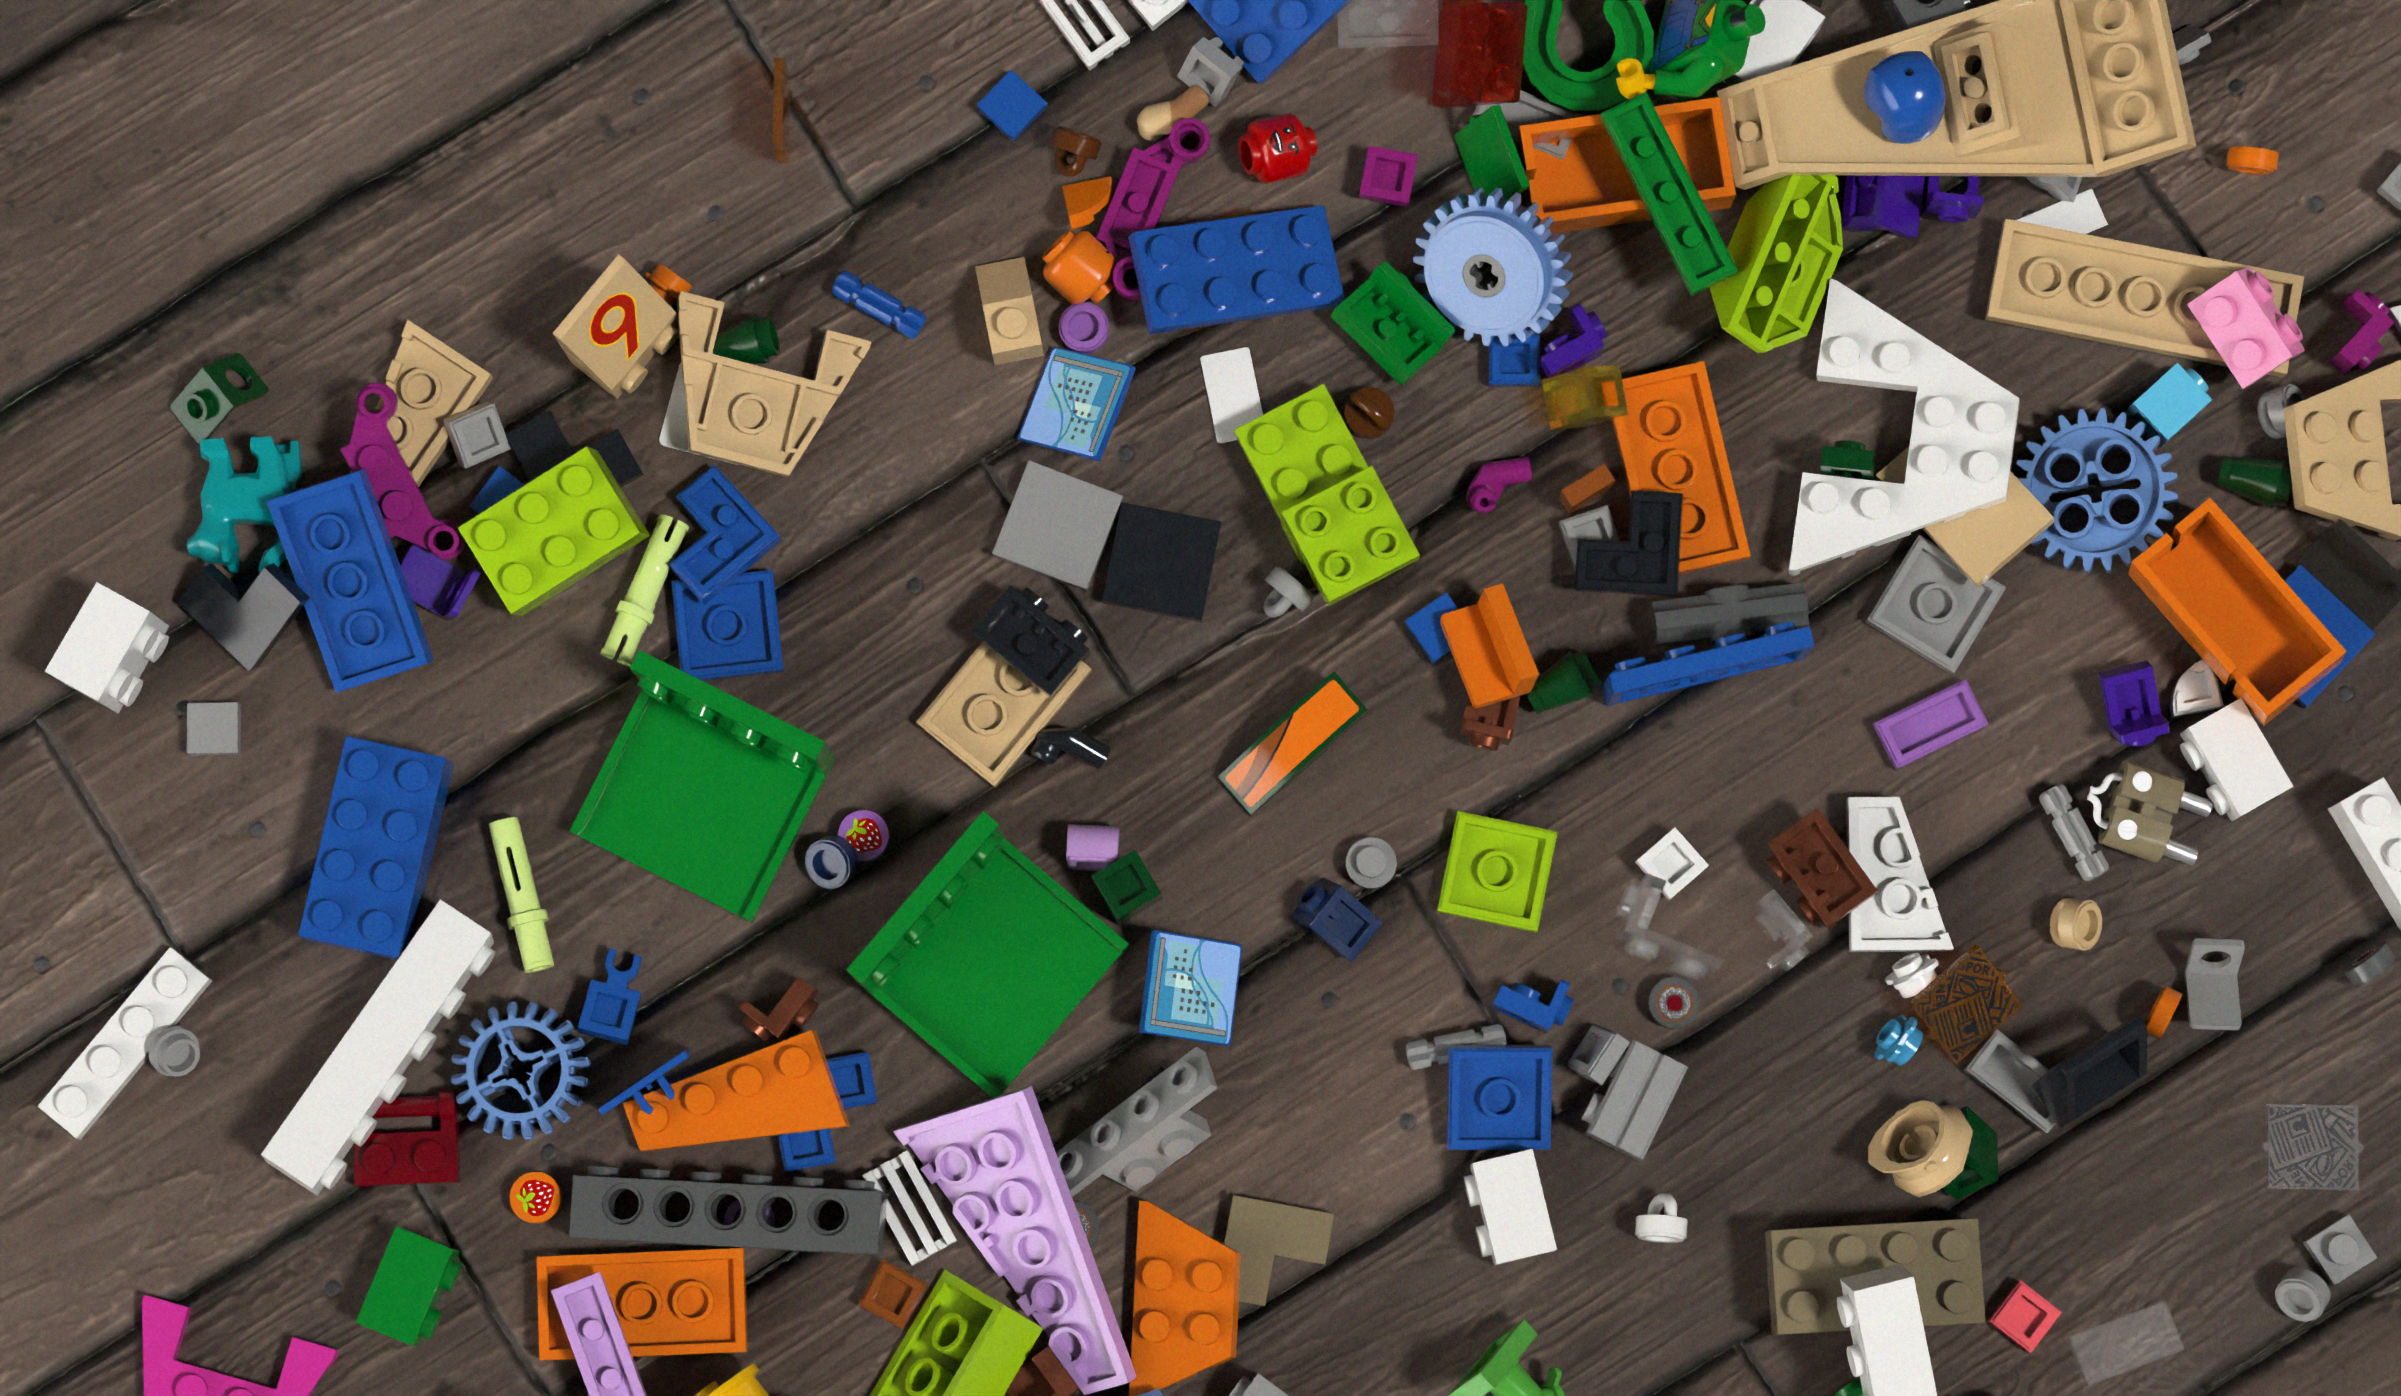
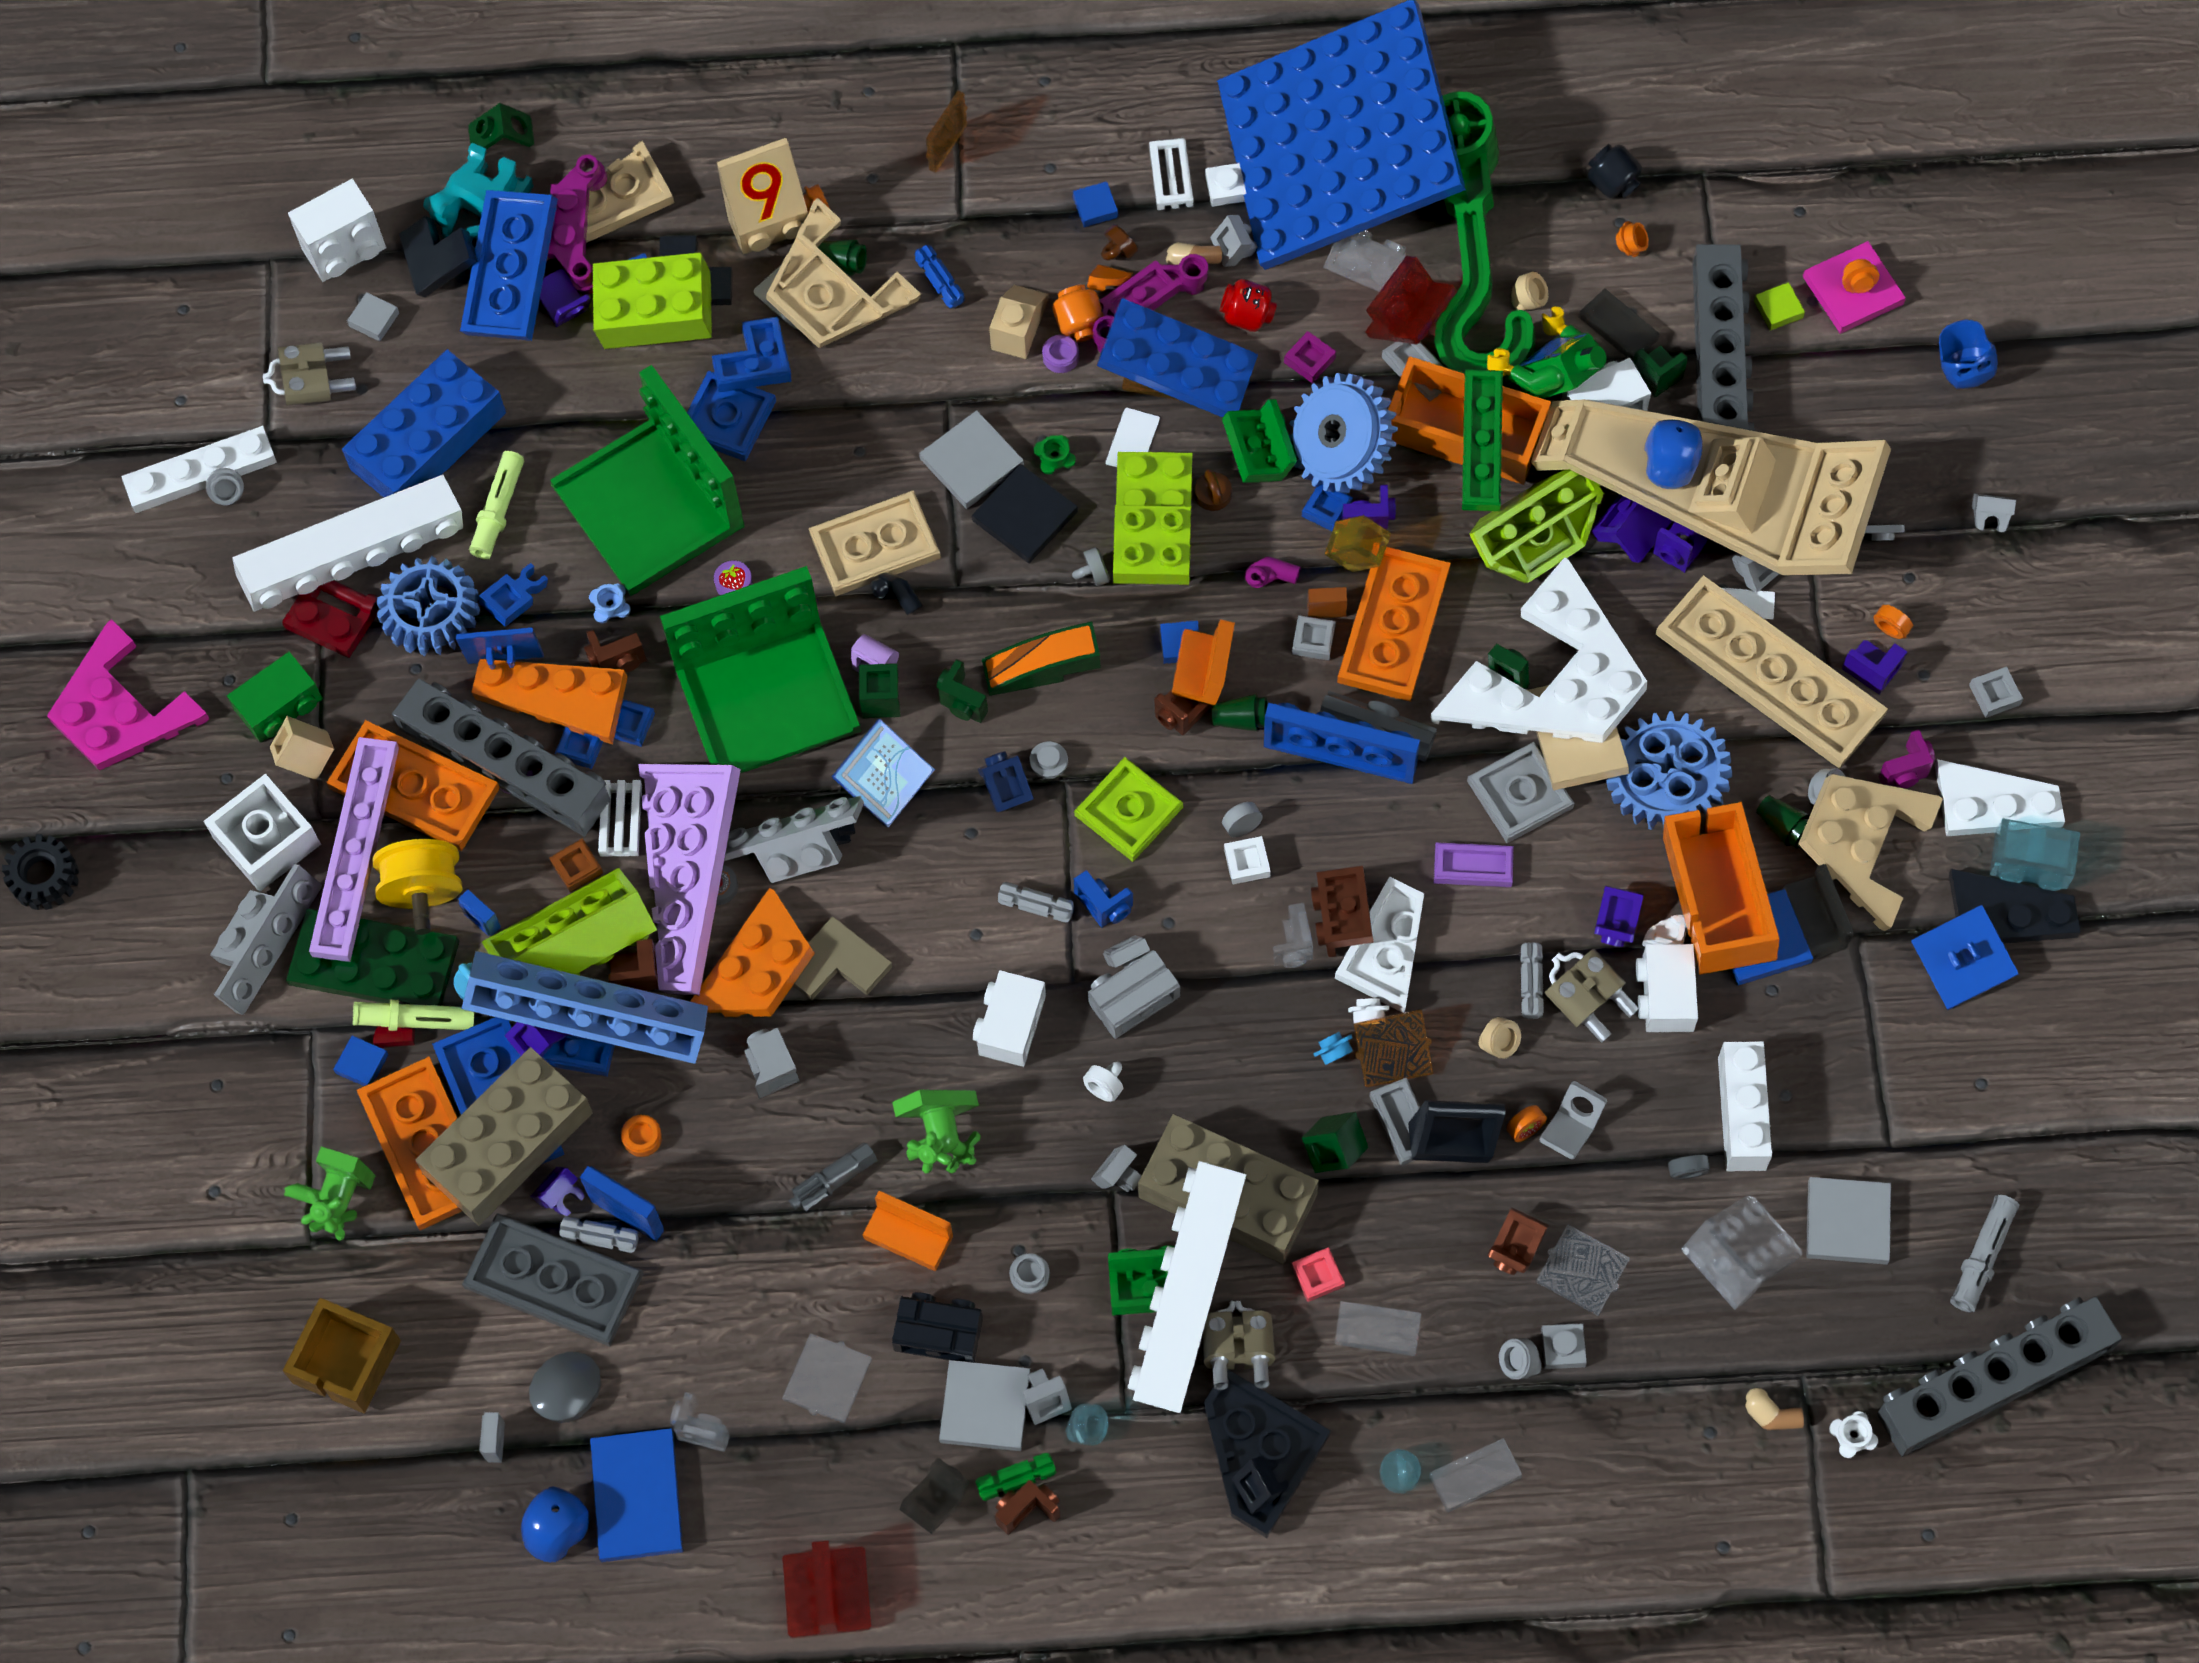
camera: 30 degrees right, 15 degrees down
(181, 851) = (306, 374): none -> dark tan piece
(476, 434) = (642, 226): light grey tile -> none
(480, 1331) = (301, 748): none -> tan panel
(536, 1197) = (388, 688): tile -> none
(639, 603) = (681, 371): yellowish green pin -> none
(718, 945) = (606, 593): none -> light blue plate
(831, 861) = (702, 582): dark blue tile -> none
(1032, 640) = (910, 512): black bracket -> none
(1076, 403) = (1027, 390): piece -> none
(1153, 451) = (1053, 444): none -> green plate
(1232, 847) = (960, 699): none -> dark green bracket
(1491, 154) = (1384, 365): green piece -> none
(1499, 1097) = (1044, 944): blue tile -> none
(1637, 908) = (1201, 874): clear bracket -> none
(1638, 816) = (1242, 819): none -> light grey tile
(1644, 563) = (1340, 661): black tile -> none
(1673, 1003) = (1197, 949): dark grey tile -> none
(1734, 1323) = (1117, 1170): none -> light grey tile
(1922, 1147) = (1307, 1117): tan hat -> none
(2170, 403) = (1751, 743): medium azure brick -> none
(2228, 1161) = (1517, 1242): none -> copper bracket
(2247, 325) = (1829, 714): bright pink bracket -> none
(2257, 224) = (1873, 665): none -> dark purple panel

